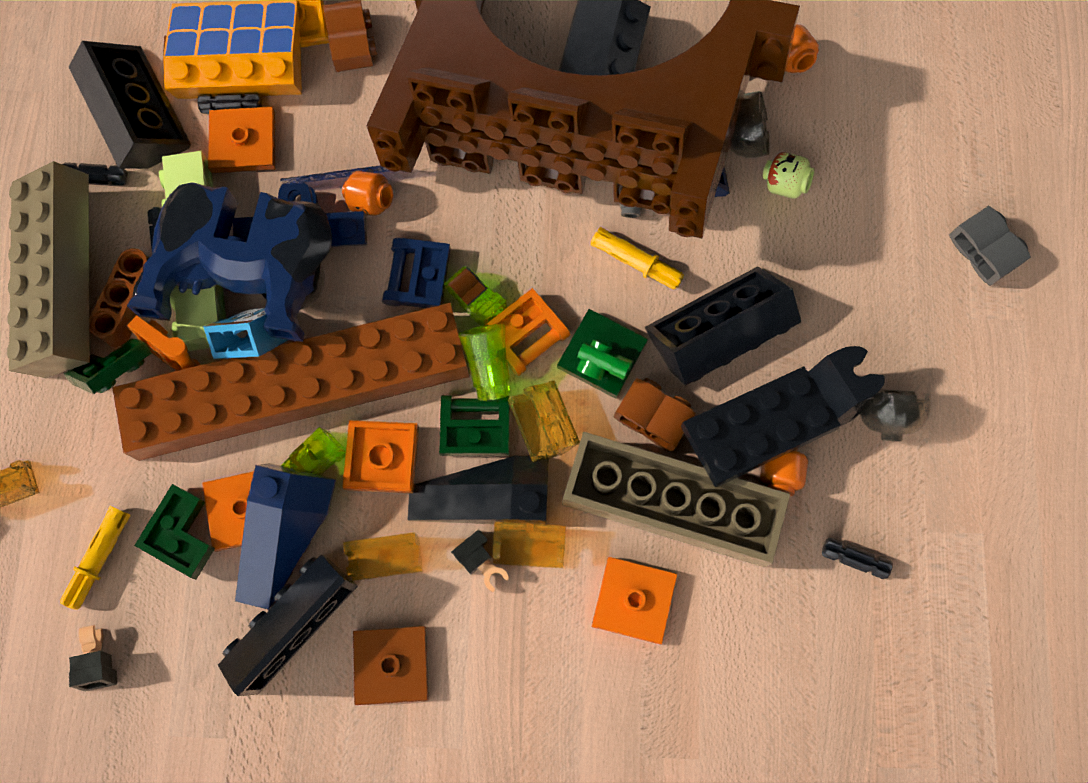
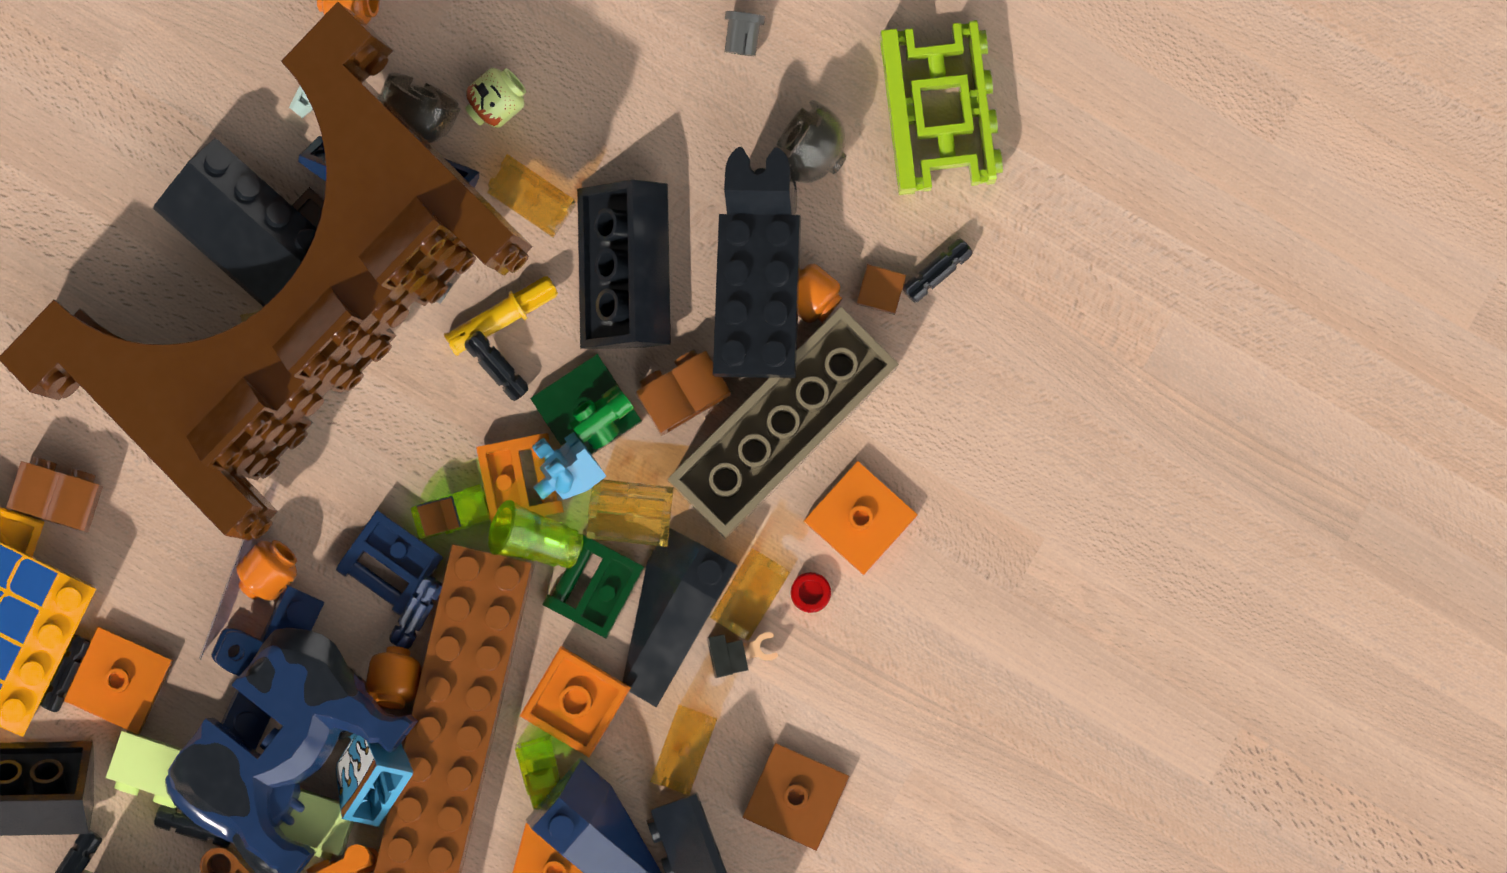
camera: 65 degrees left, 10 degrees up
(332, 314) = (393, 677): none -> orange head
(388, 307) = (415, 612): none -> dark blue axle
(550, 358) = (567, 469): none -> dark azure piece
(556, 592) = (810, 592): none -> red tile
(599, 272) = (496, 365): none -> black axle
(734, 235) = (531, 196): none -> clear yellow hinge
(816, 522) = (881, 289): none -> dark orange tile
(942, 319) = (742, 32): none -> dark grey bush
(963, 470) = (909, 111): none -> lime fence

